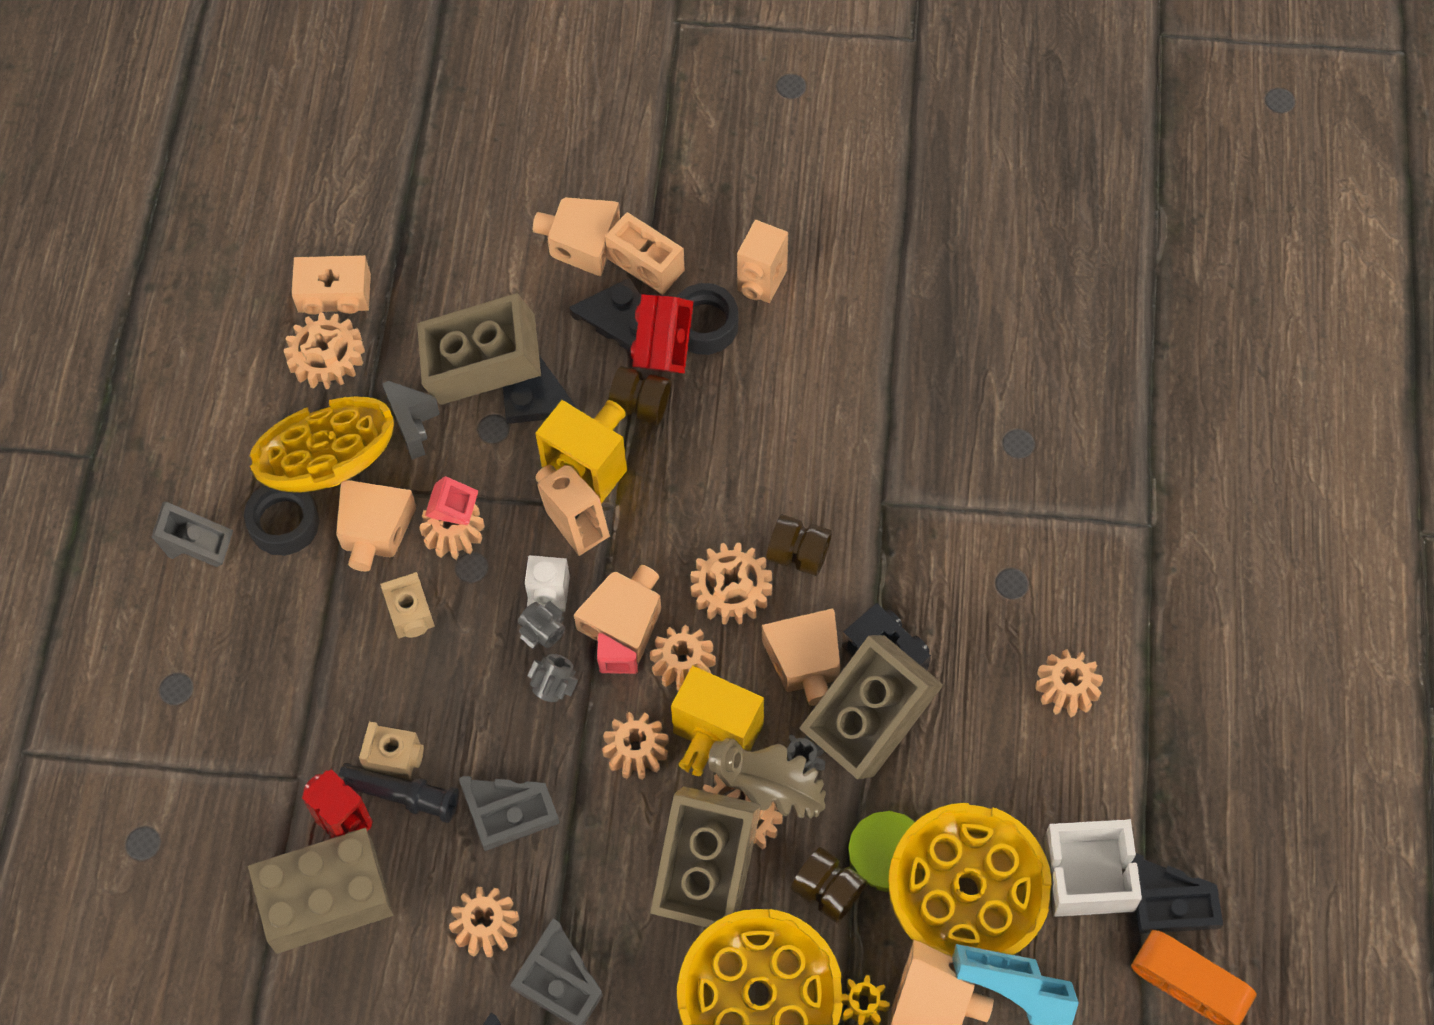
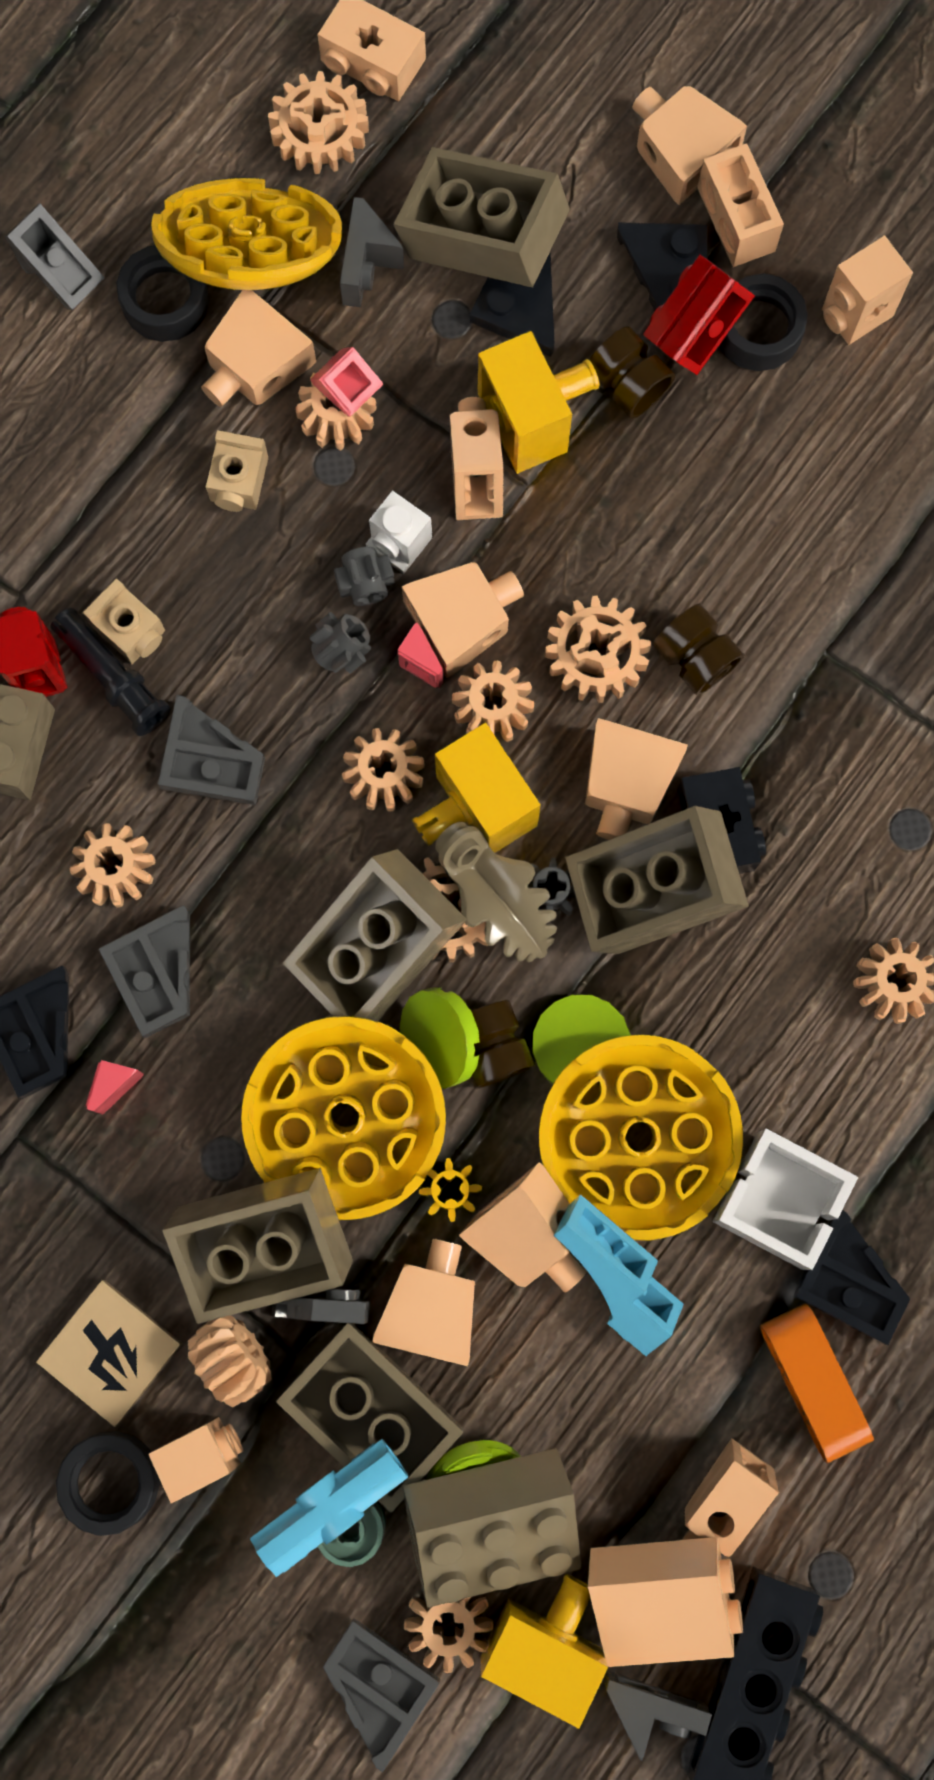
camera: 30 degrees right, 15 degrees up
(792, 890) = (443, 1032): none -> lime tile

